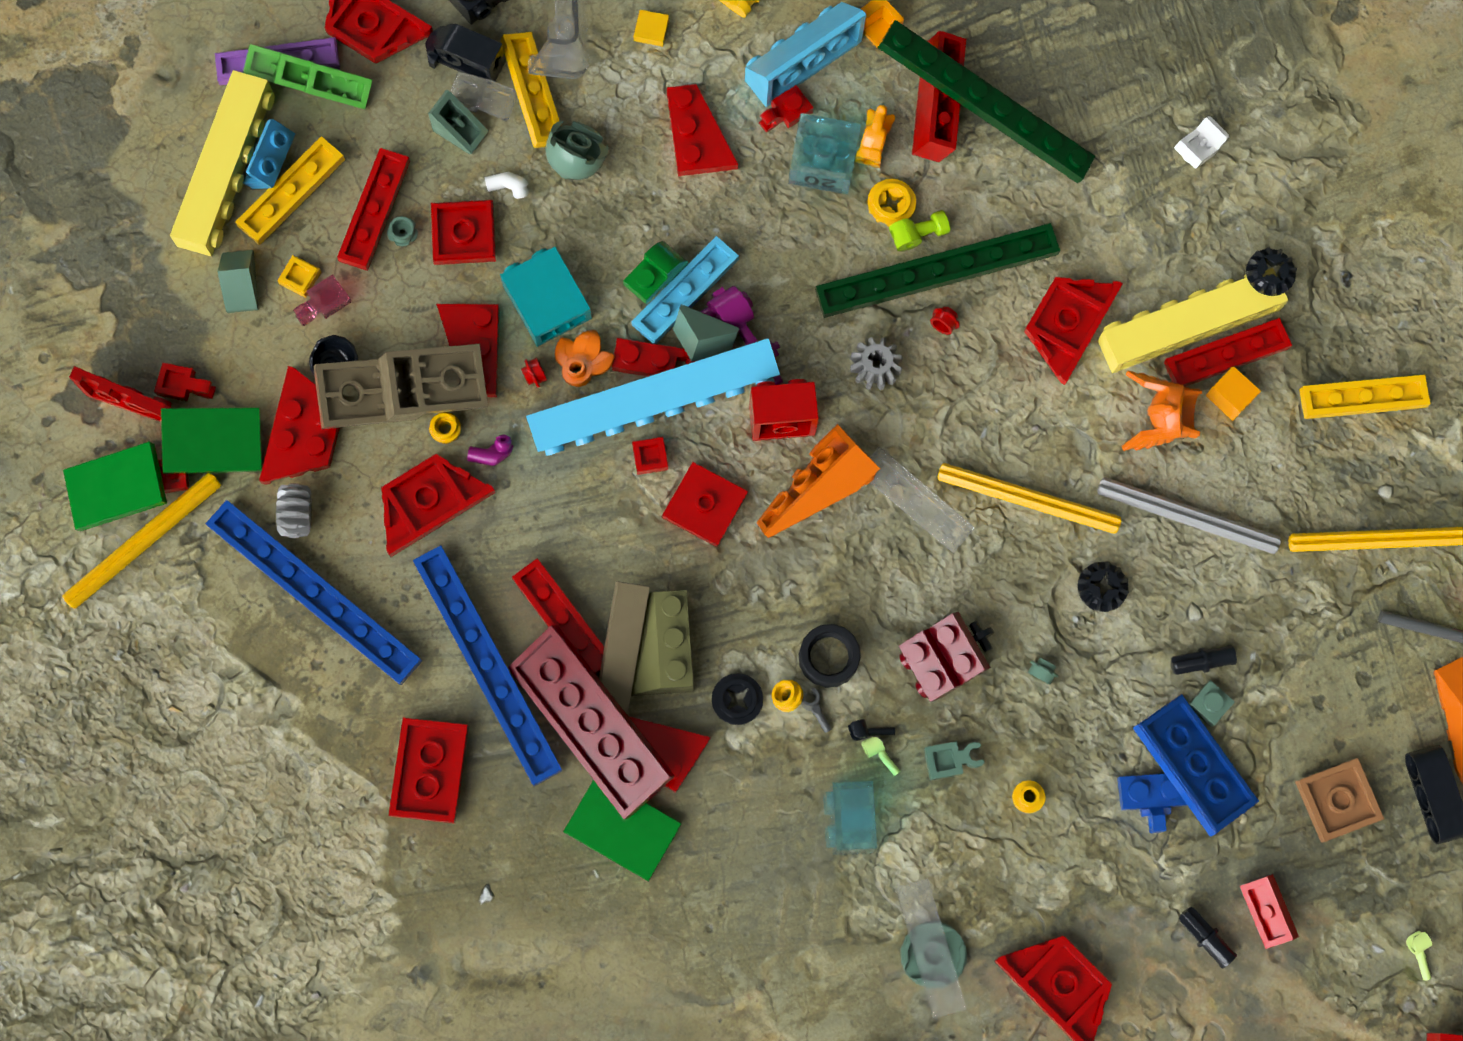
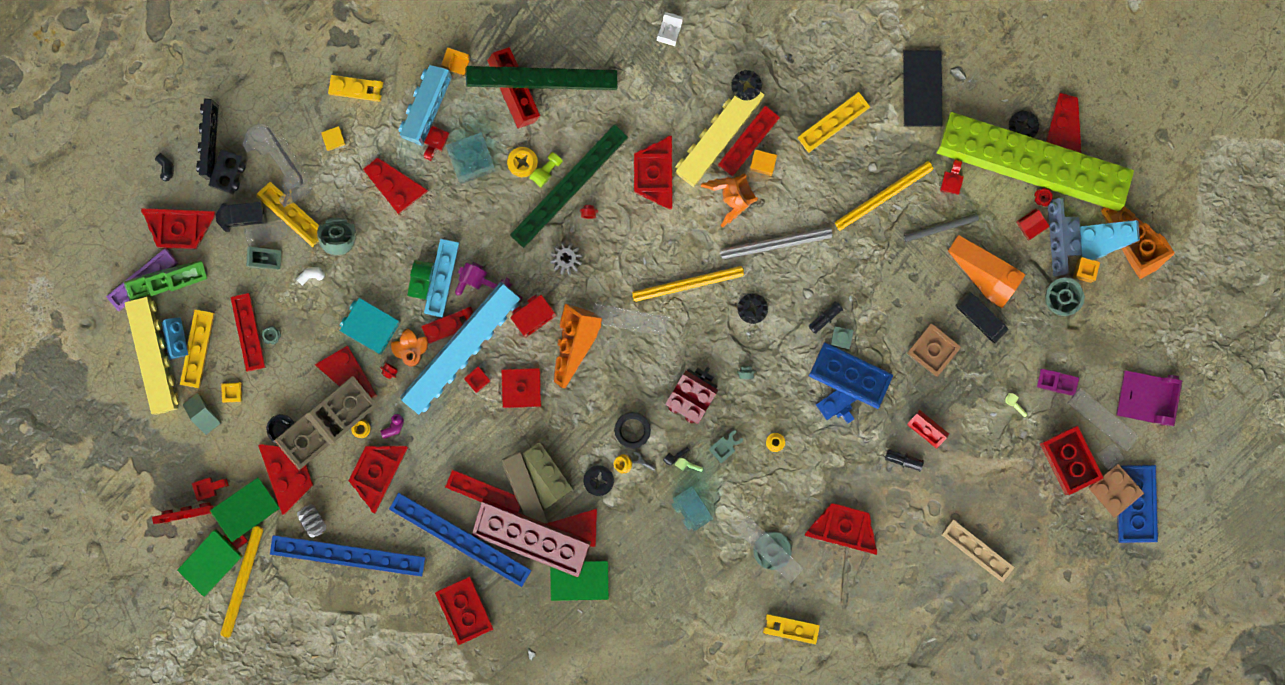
camera: 20 degrees left, 10 degrees up
(325, 298) = (254, 397): clear pink plate -> none
(463, 232) = (304, 316): red plate -> none
(702, 334) = (466, 299): sand green slope -> none
(874, 137) = (492, 132): light orange animal -> none

